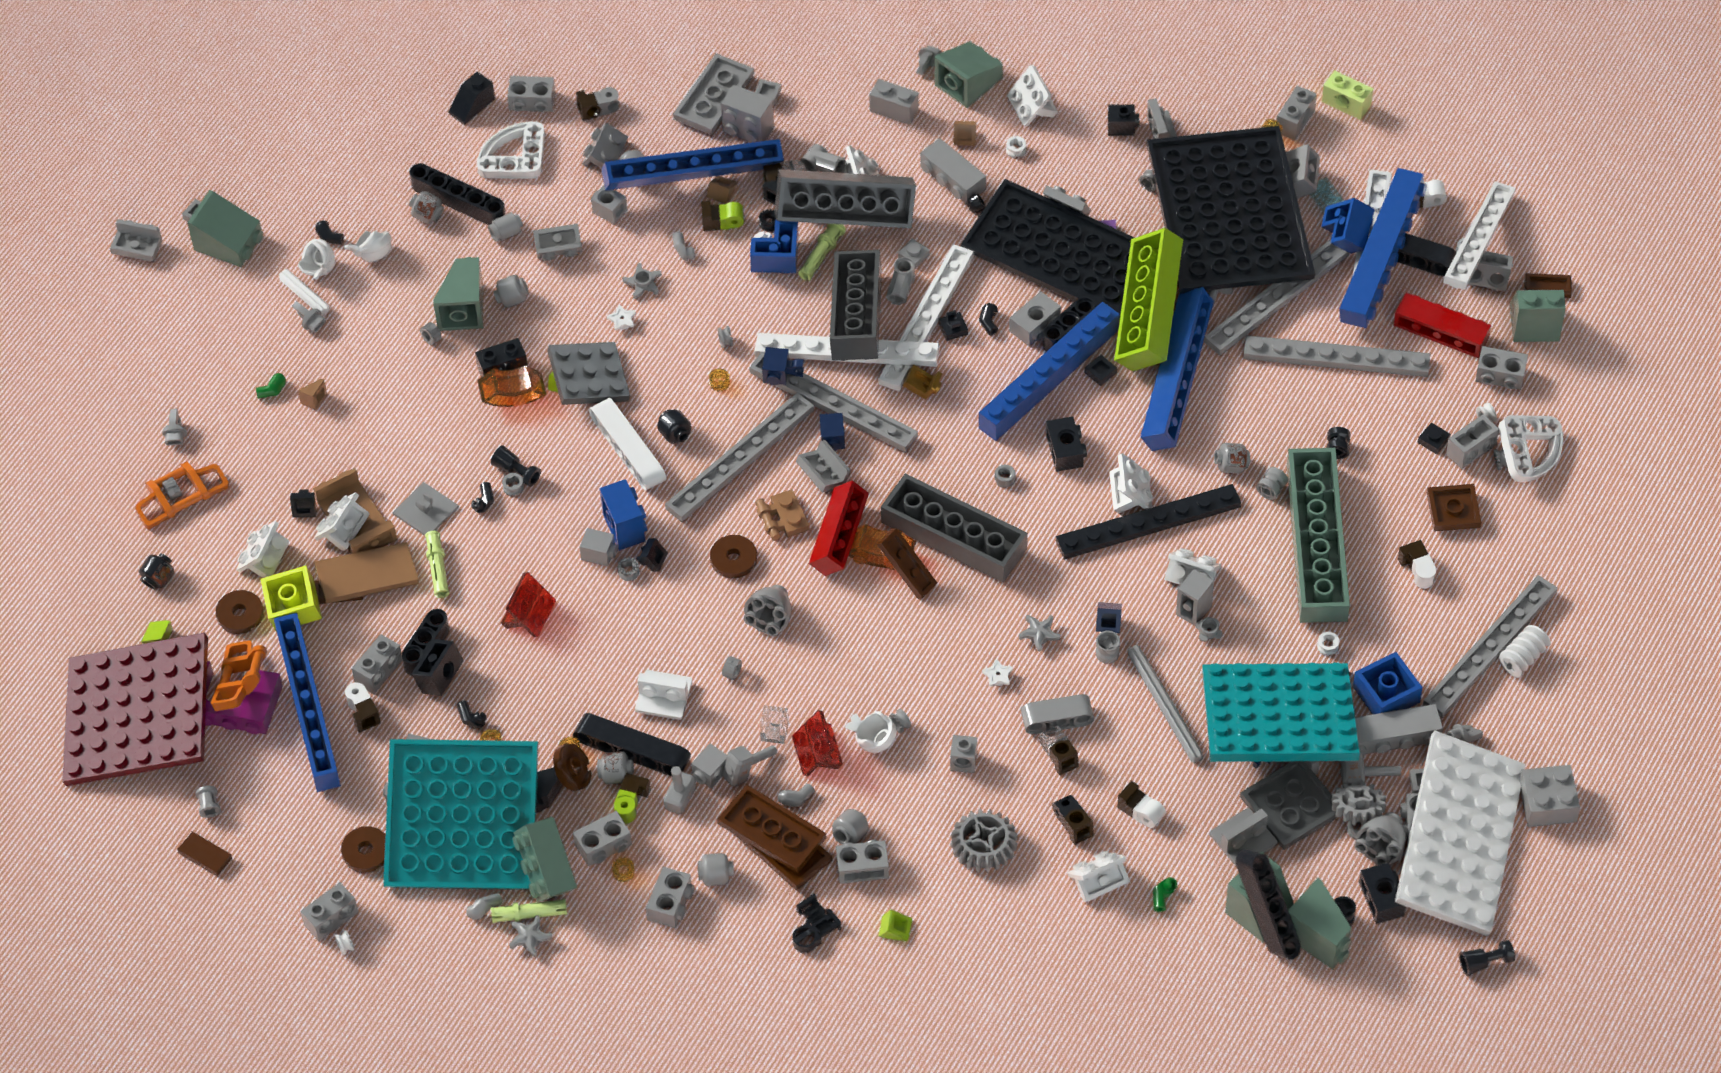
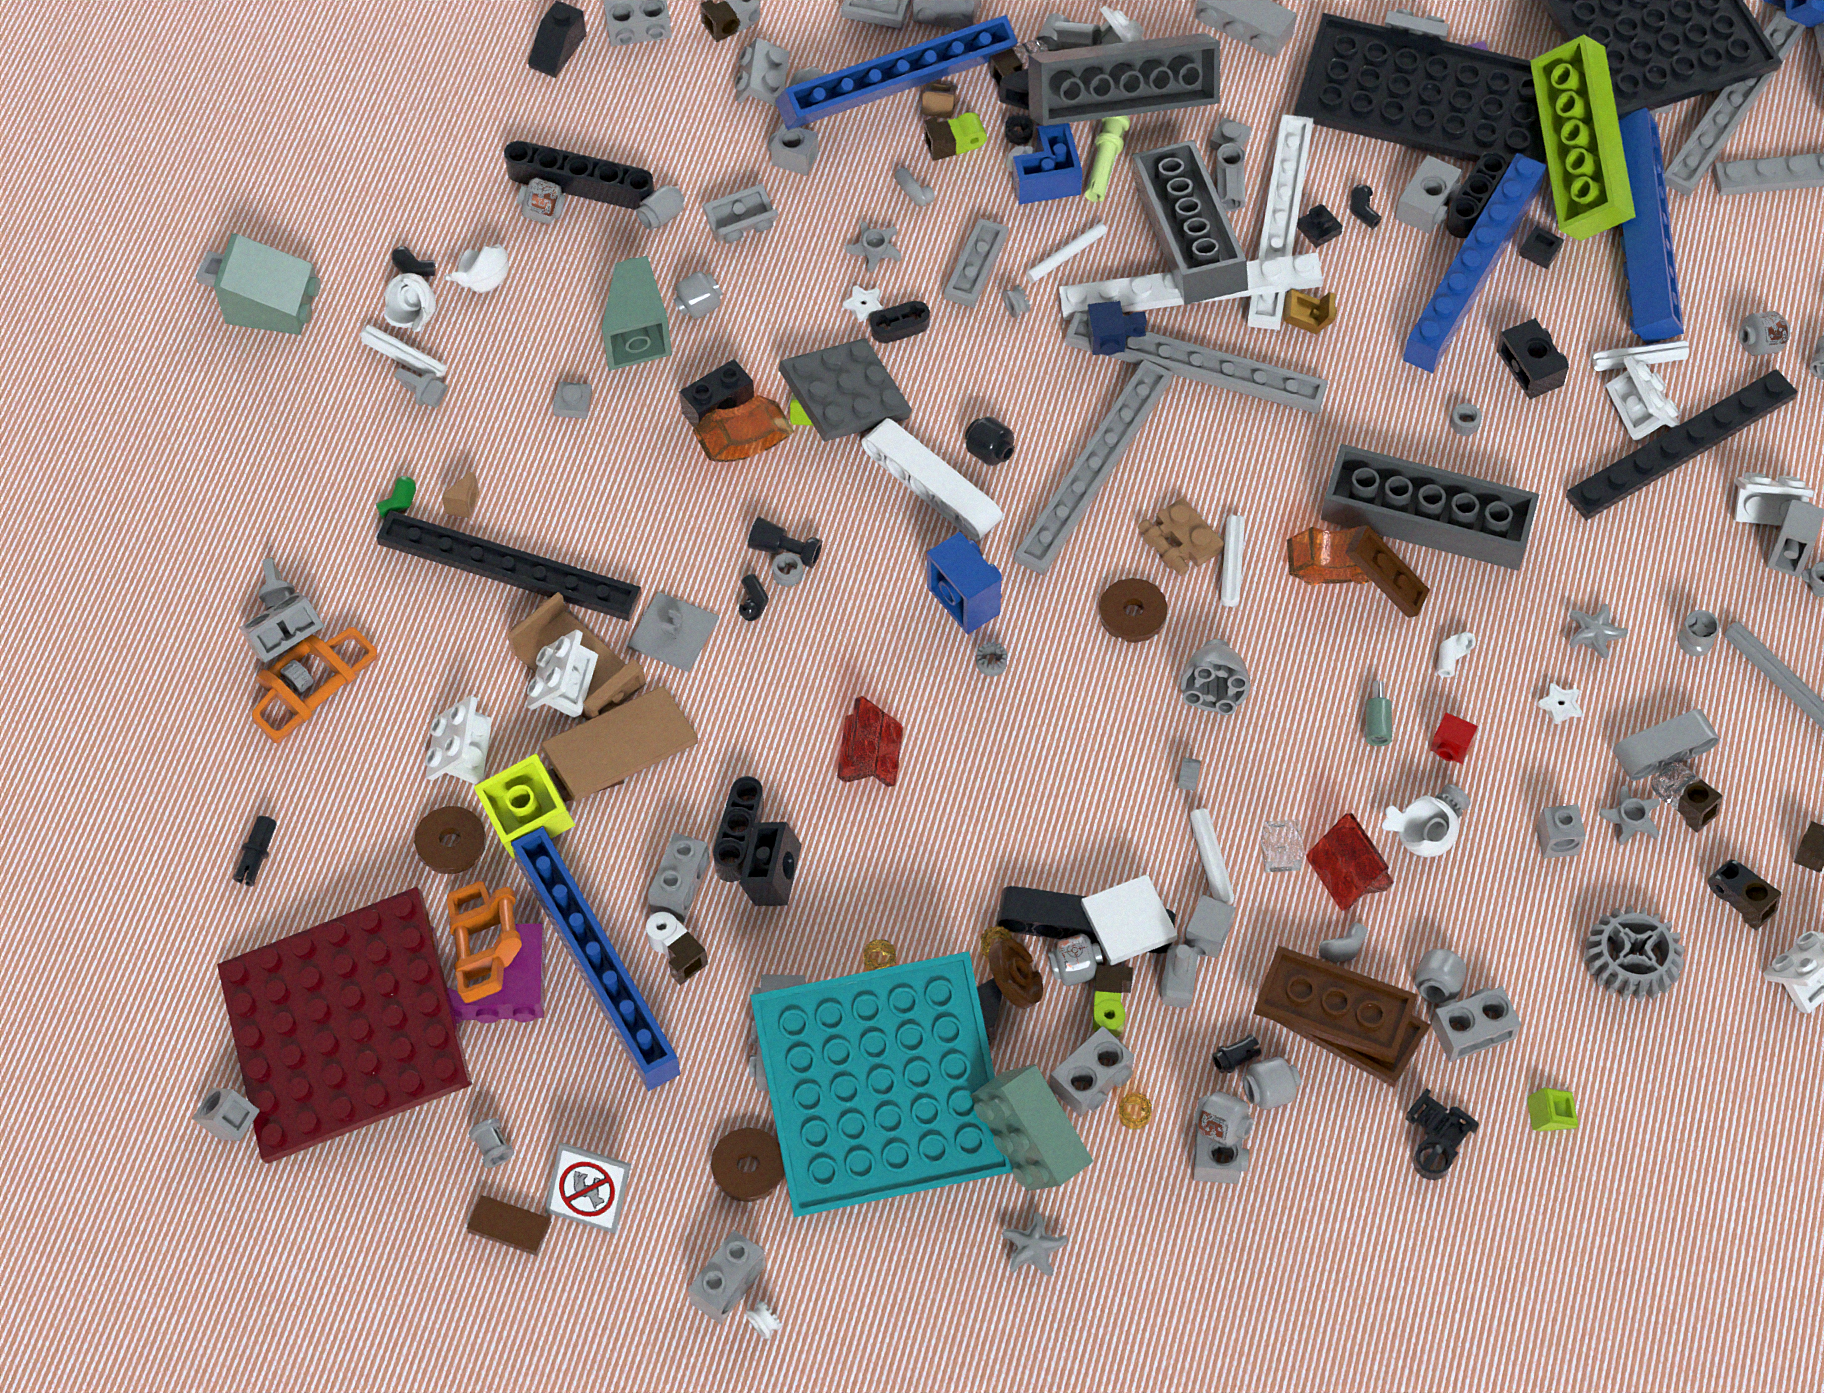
camera: 15 degrees left, 5 degrees up
(47, 748) = (225, 1114): none -> light grey brick
(113, 592) = (255, 850): none -> black axle
(136, 240) = (140, 325): light grey bracket -> none
(156, 571) = (310, 805): black head -> none
(157, 631) = (337, 897): lime slope -> none
(170, 454) = (281, 627): none -> light grey brick
(258, 840) = (588, 1187): none -> piece
(303, 504) = (497, 660): black tile -> none
(330, 445) = (509, 565): none -> black plate
(406, 345) = (572, 400): none -> light grey plate
(430, 333) = (602, 376): light grey axle -> none
(436, 557) = (711, 696): yellowish green pin -> none
(468, 718) = (837, 929): black arm -> none
(483, 905) = (951, 1215): light grey arm -> none
(521, 163) = (653, 115): white beam -> none
(530, 910) = (1012, 1210): yellowish green pin -> none
(598, 547) = (941, 636): light grey brick -> none
(642, 335) = (900, 322): none -> black beam
(652, 555) = (1021, 631): black tile -> none
(655, 748) = (1129, 919): none -> white tile
(662, 694) = (1105, 834): white bracket -> none
(670, 880) = (1223, 1118): none -> light grey head
(699, 848) = (1229, 1057): none -> black pin
(707, 305) = (976, 263): none -> light grey plate
(720, 385) = (1032, 369): clear yellow bush -> none
(729, 721) = (1211, 856): none -> white axle
(740, 762) = (1255, 914): light grey piece -> none
(773, 310) = (1066, 252): none -> white bar
(808, 543) = (1232, 561): none -> white axle
(824, 467) = (1218, 457): light grey bracket -> none
(832, 430) = (1210, 405): dark blue brick -> none
(838, 528) = (1271, 540): red brick -> none
(871, 658) = (1378, 717): none -> sand green piece
(916, 681) = (1454, 738): none -> red plate
(937, 625) = (1452, 650): none -> white arm
(976, 203) = (1290, 54): black hinge -> none
(1018, 755) = (1632, 816): none -> light grey animal
(1109, 617) = (1688, 590): dark blue brick -> none
(1144, 456) = (1647, 353): none -> white axle

